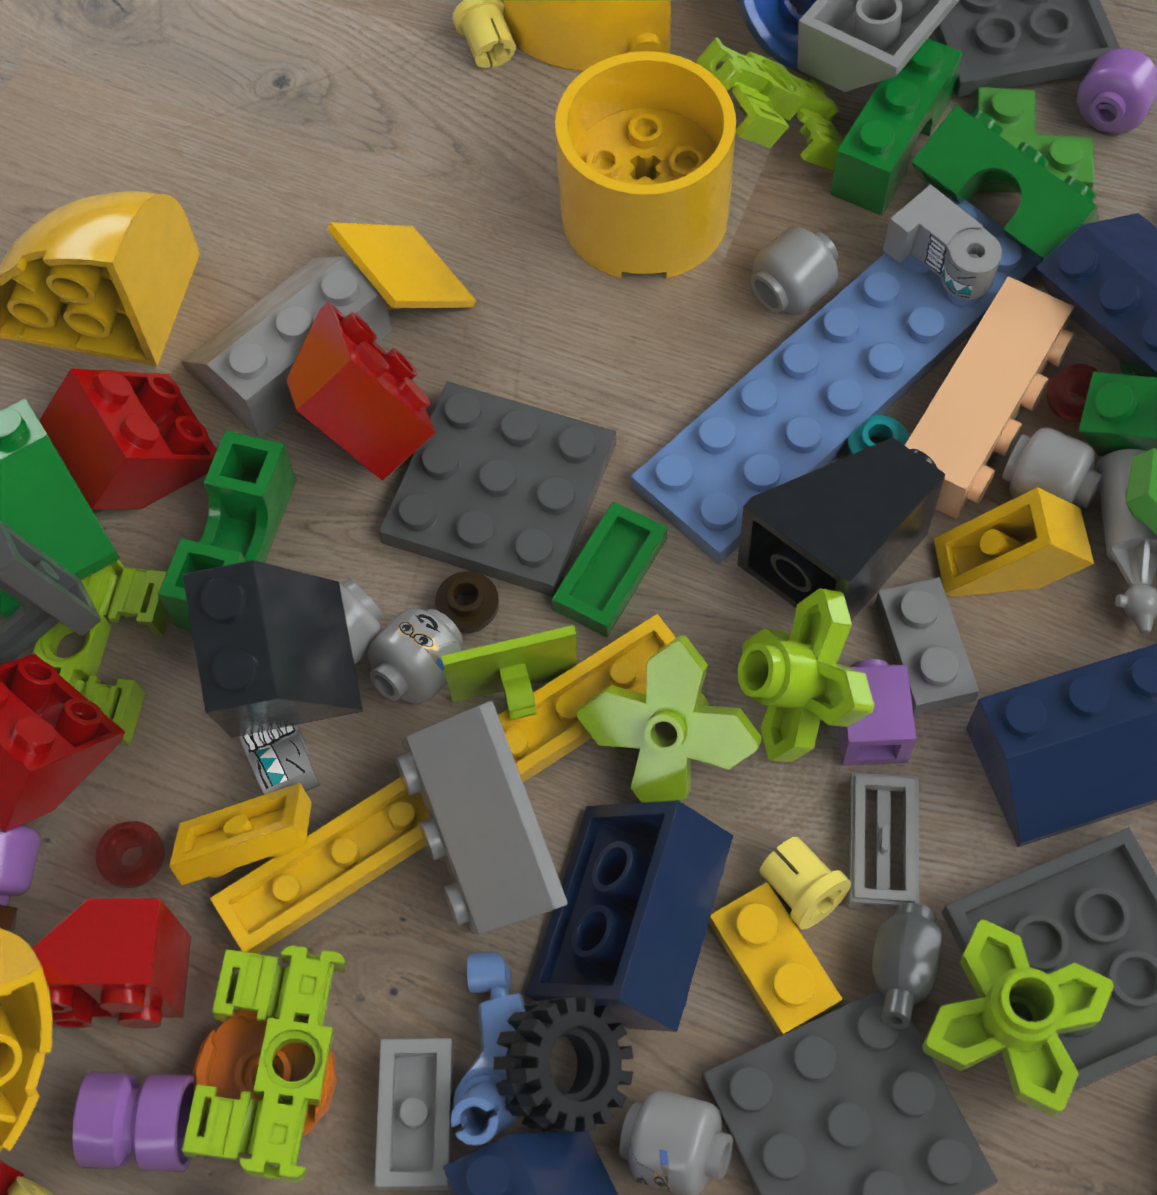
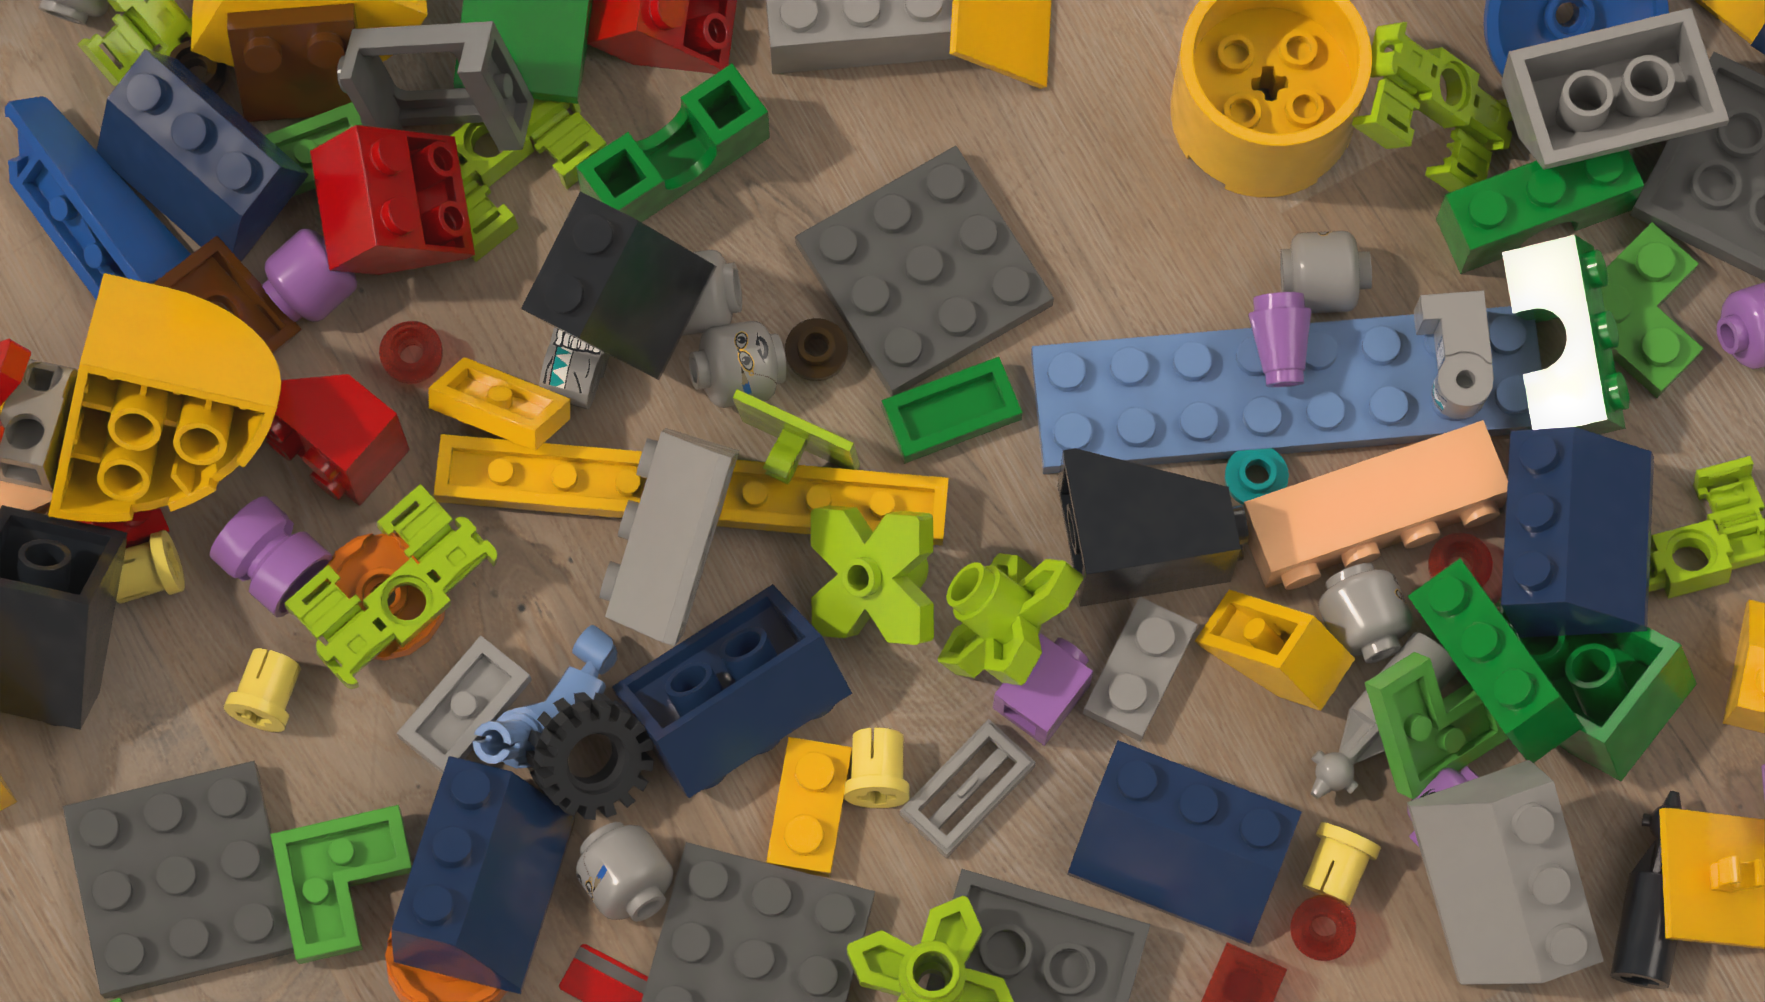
camera: 35 degrees right, 10 degrees up
(359, 392) = (866, 108): red slope -> none
(813, 325) = (1281, 336): none -> medium lavender cone
(906, 961) = (897, 883): dark grey plant -> none

